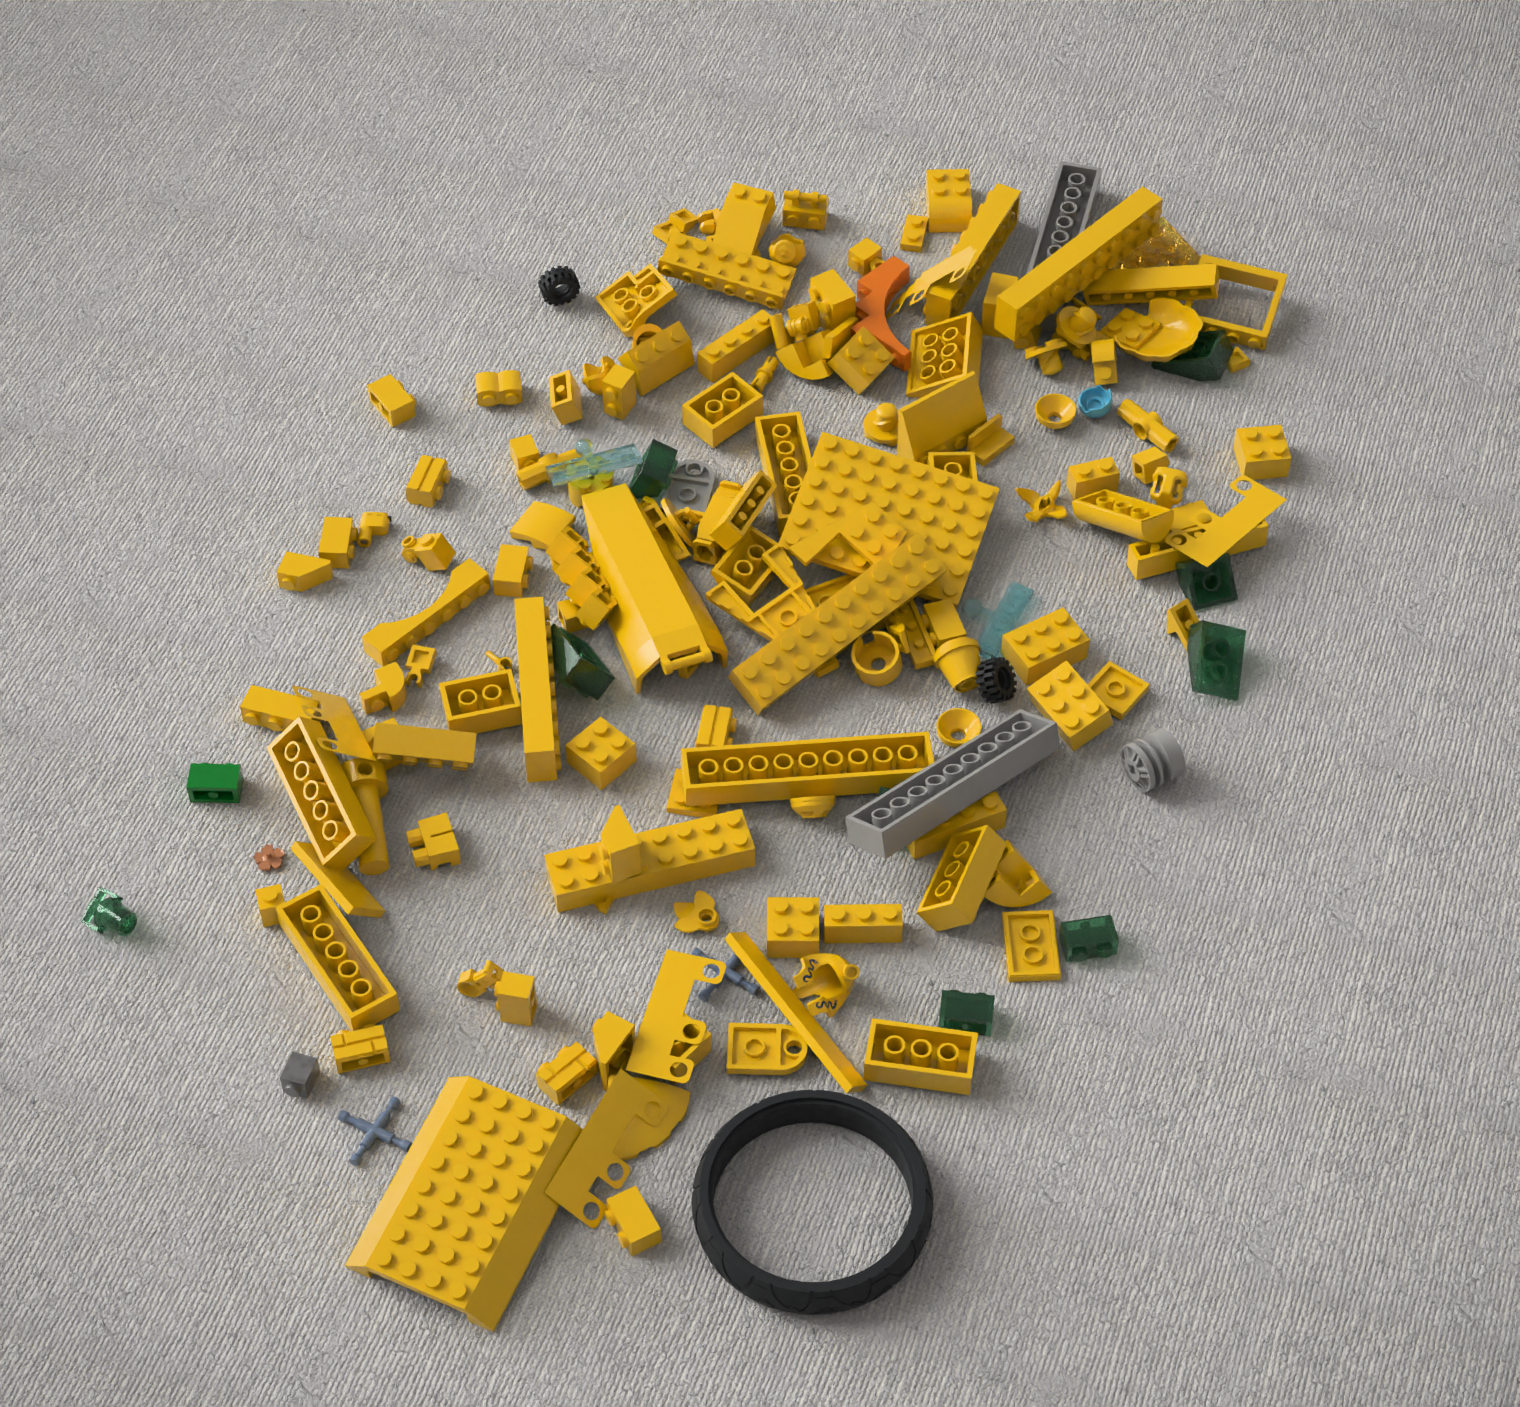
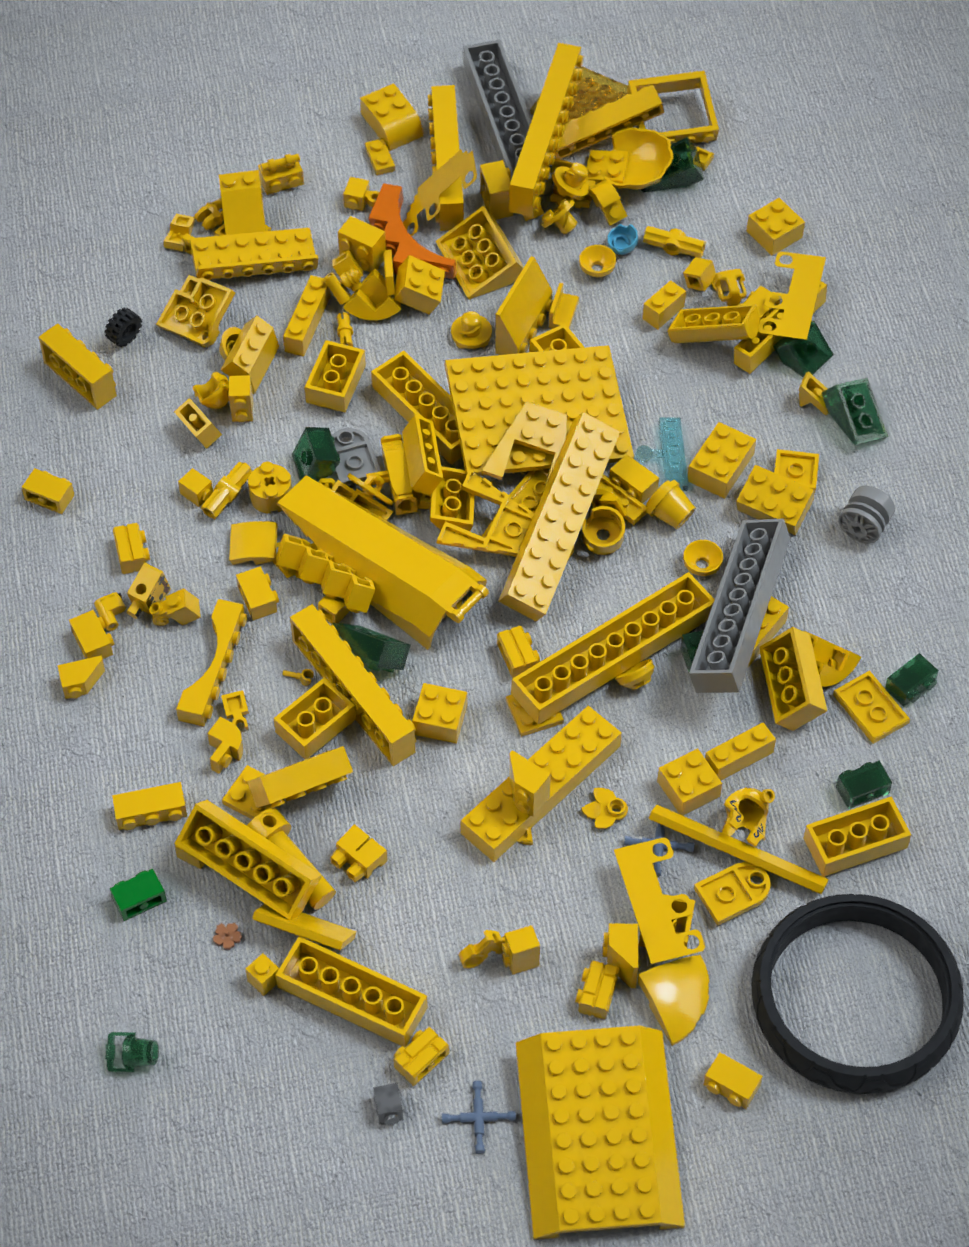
camera: 30 degrees left, 5 degrees up
(342, 721) = (207, 786): yellow piece -> none
(412, 519) = (148, 587): none -> yellow torso
(493, 302) = (78, 366): none -> yellow brick
(498, 388) = (132, 439): yellow brick -> none
(592, 464) = (269, 472): clear light blue plate -> none
(594, 1146) = (669, 1037): yellow piece -> none
(787, 250) = (291, 214): yellow hair -> none
(996, 680) = (707, 505): black tyre -> none
(1042, 505) = (639, 343): yellow animal -> none

